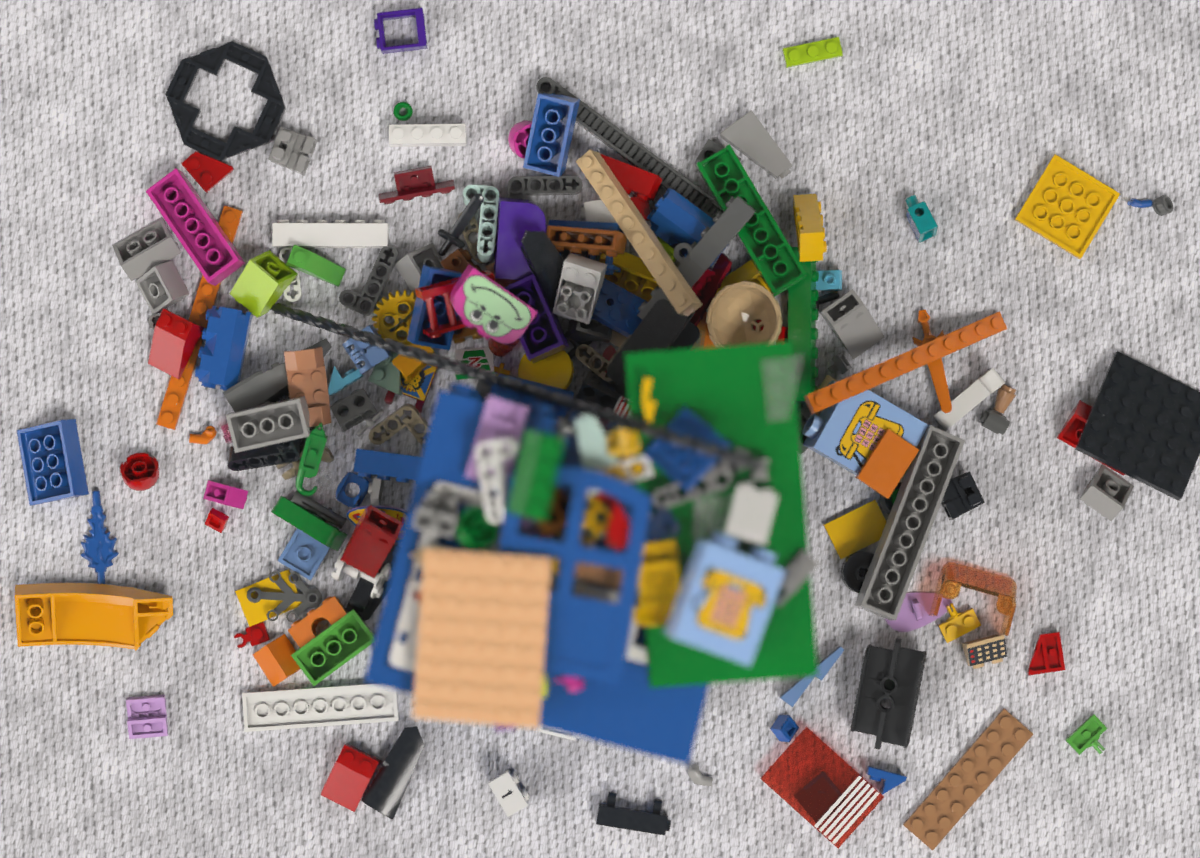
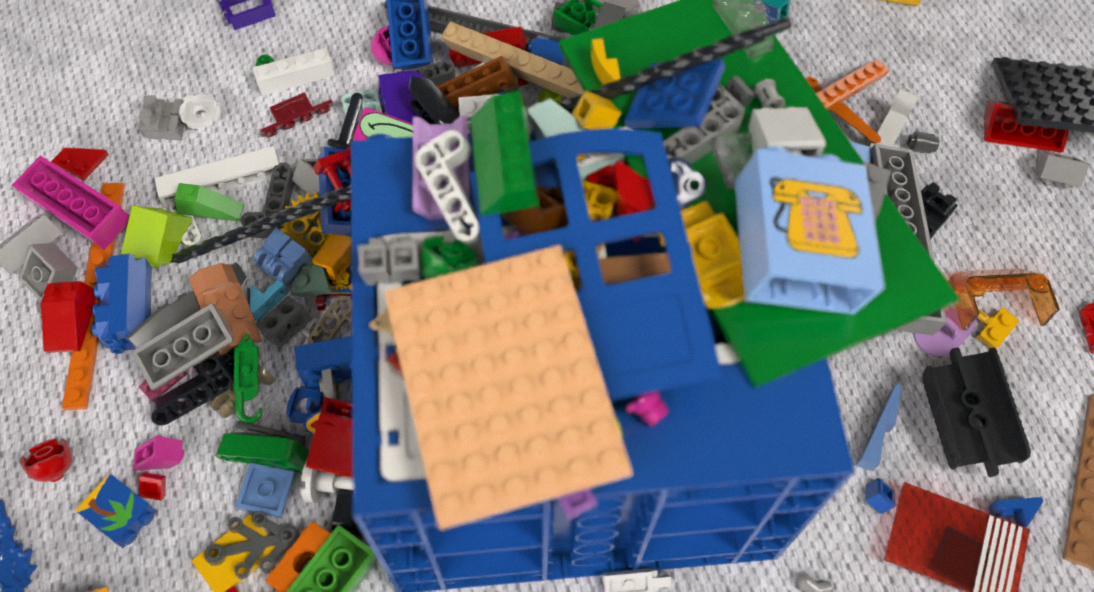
camera: 25 degrees left, 25 degrees down
(185, 532) = (116, 511): none -> blue panel
(207, 436) = (122, 405): orange arm -> none
(239, 139) = (107, 126): black plate -> none
(325, 159) = (193, 104): none -> white plate
(985, 650) = (1040, 338): slope -> none
(1004, 397) = (920, 119): medium nougat cone -> none

